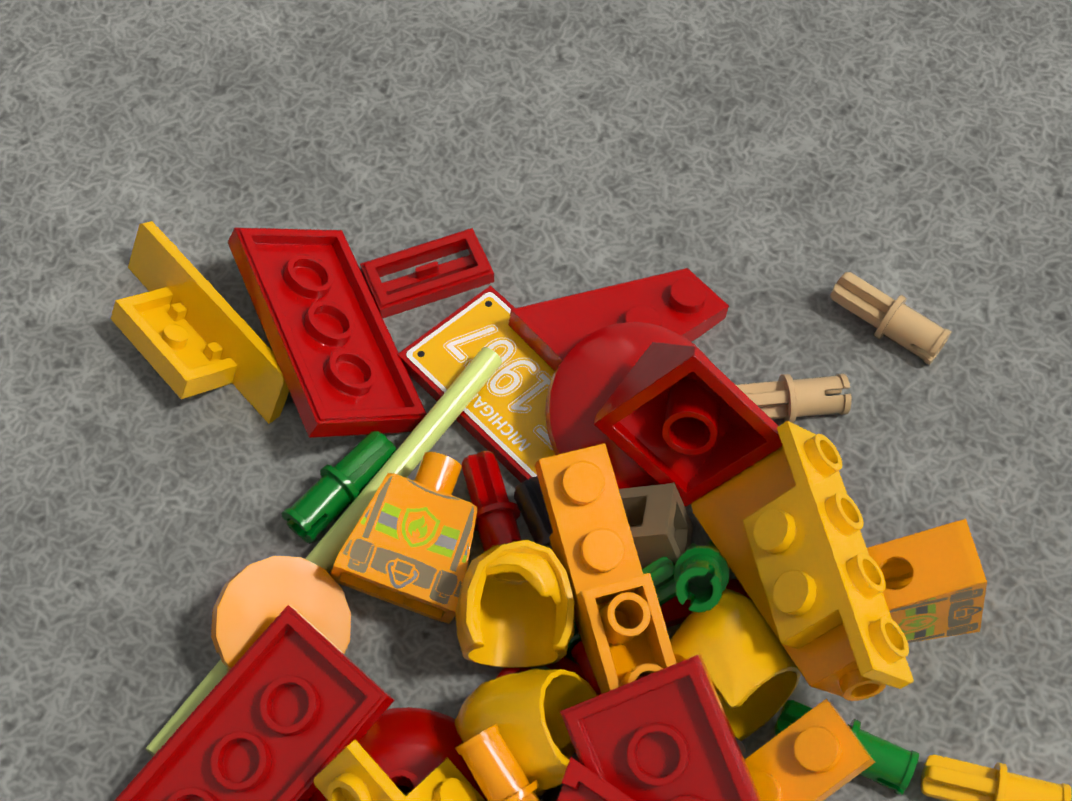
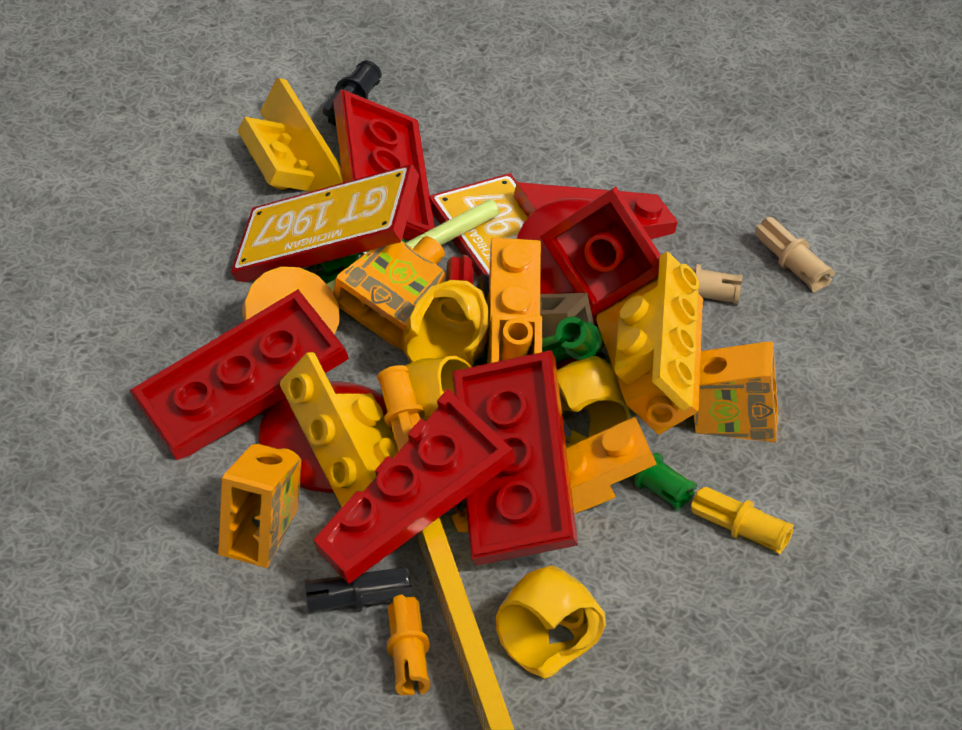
camera: 15 degrees right, 15 degrees down
(243, 203) = (359, 82): none -> black axle
(289, 466) = (327, 223): none -> tile
(430, 281) = (469, 163): red tile -> none

